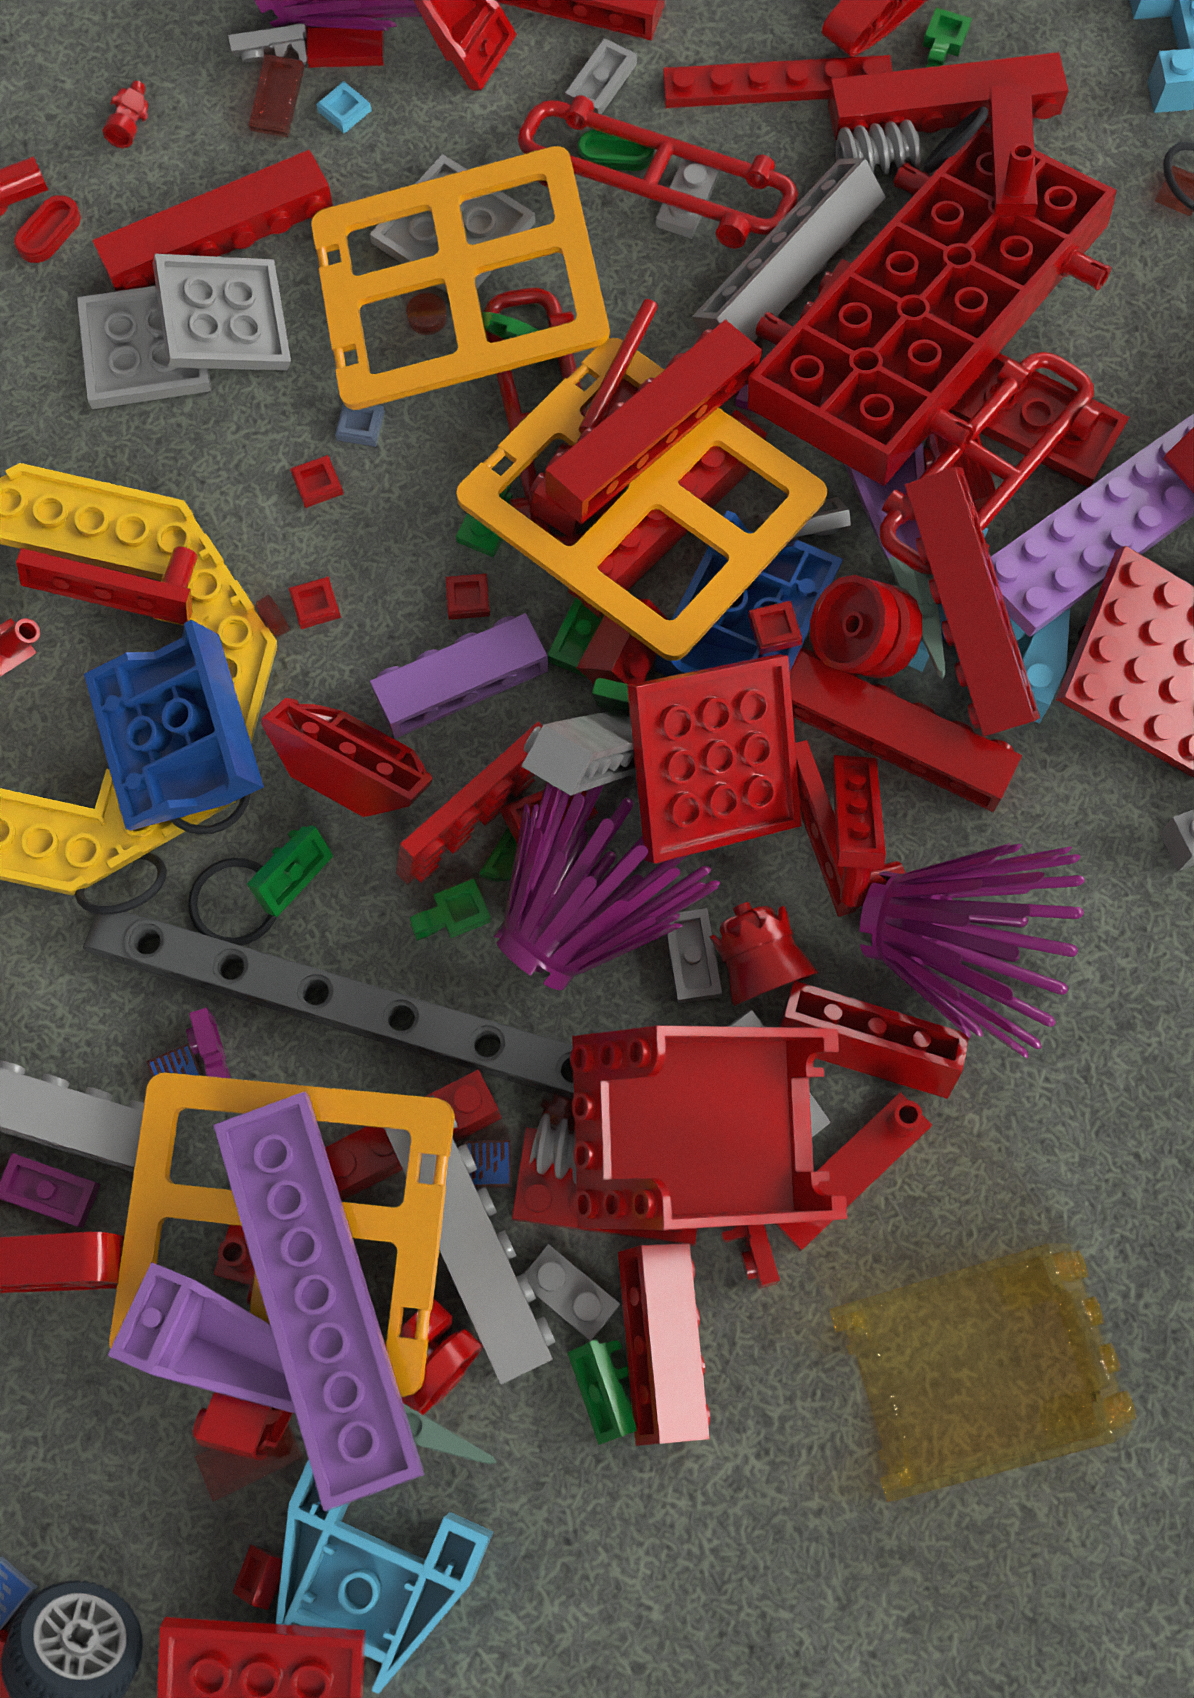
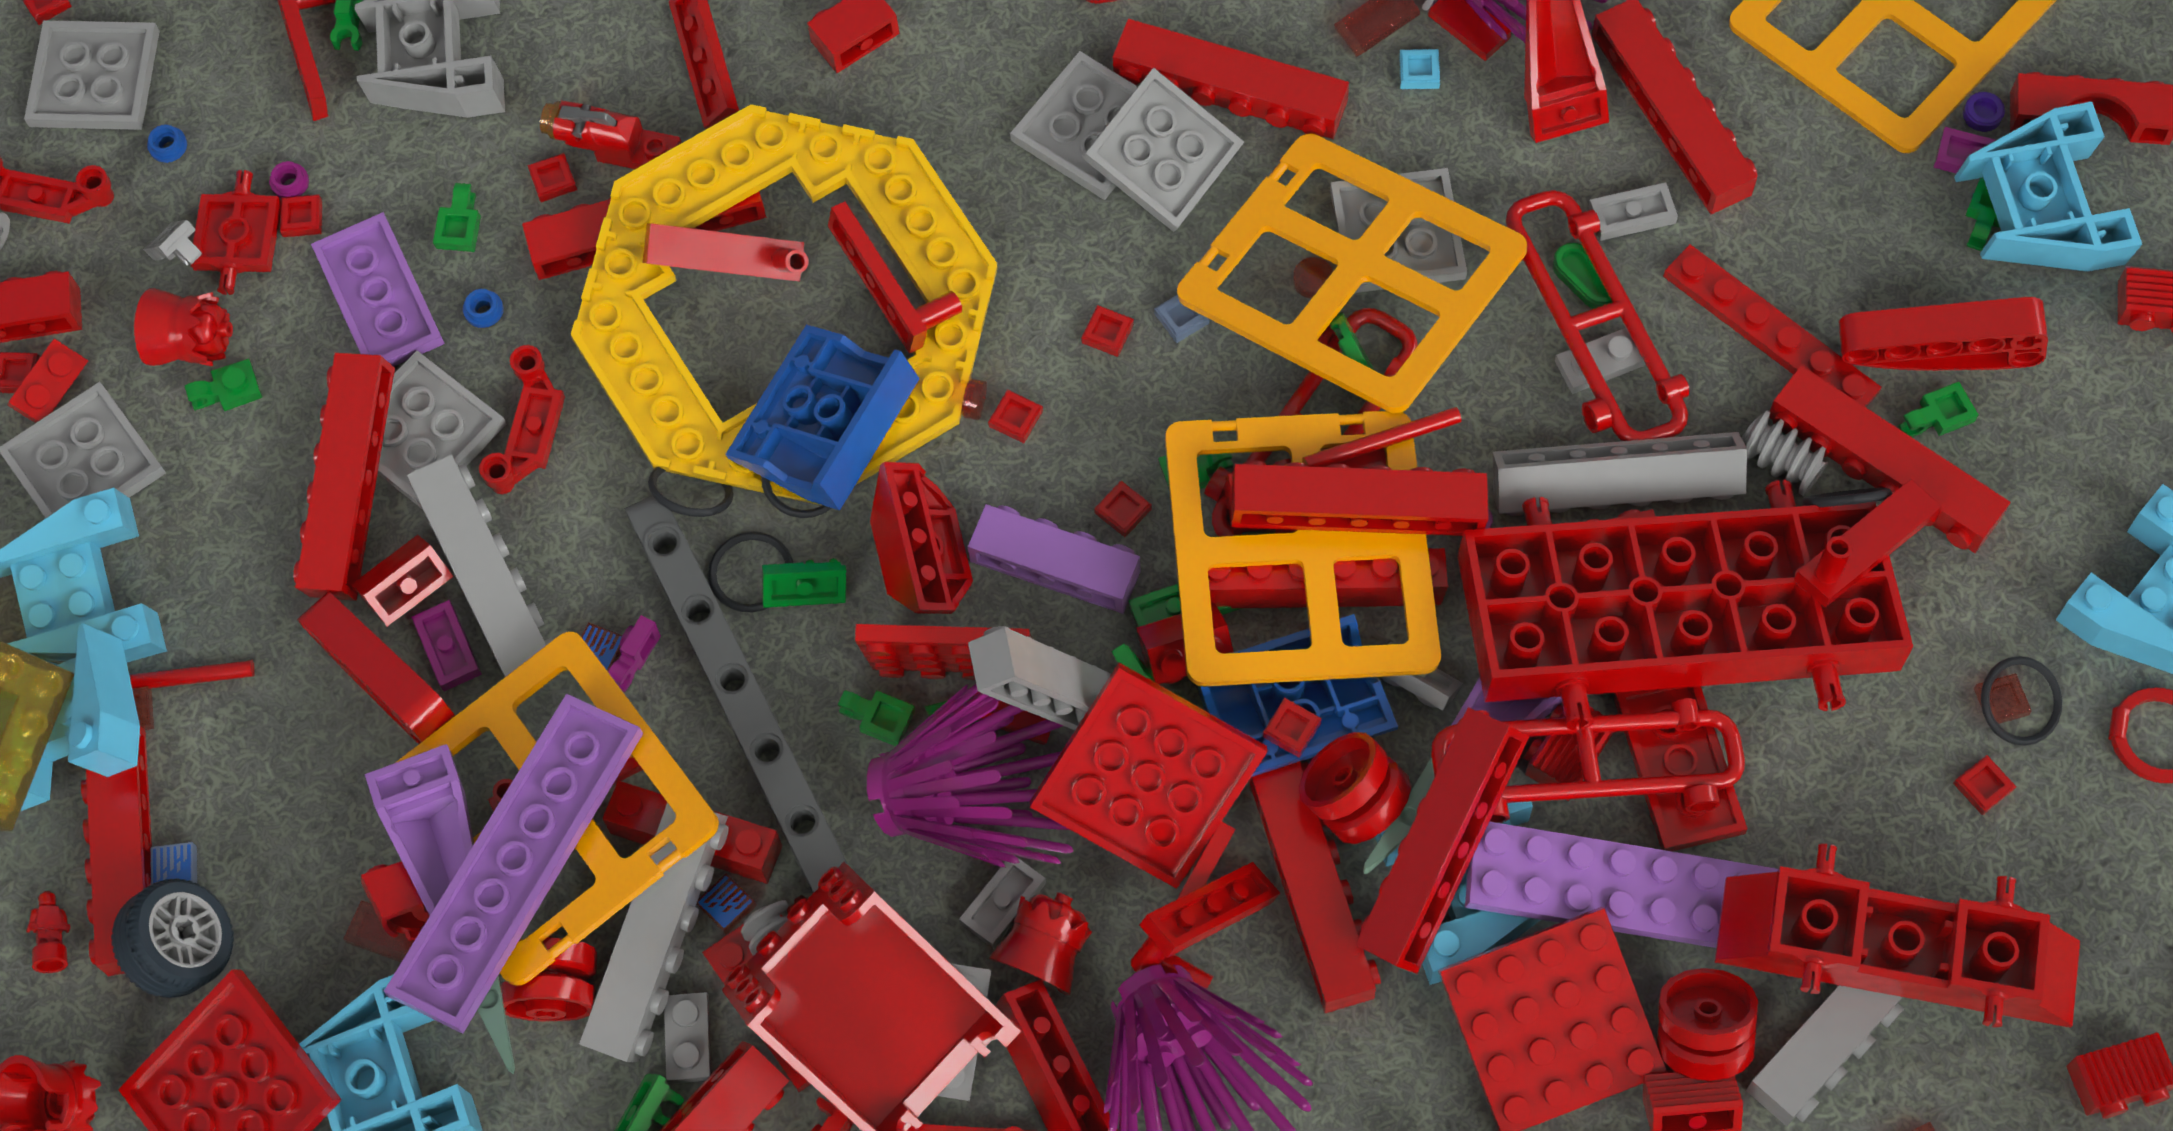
camera: 50 degrees right, 5 degrees down
(259, 1577) = (319, 1011): red plate -> none

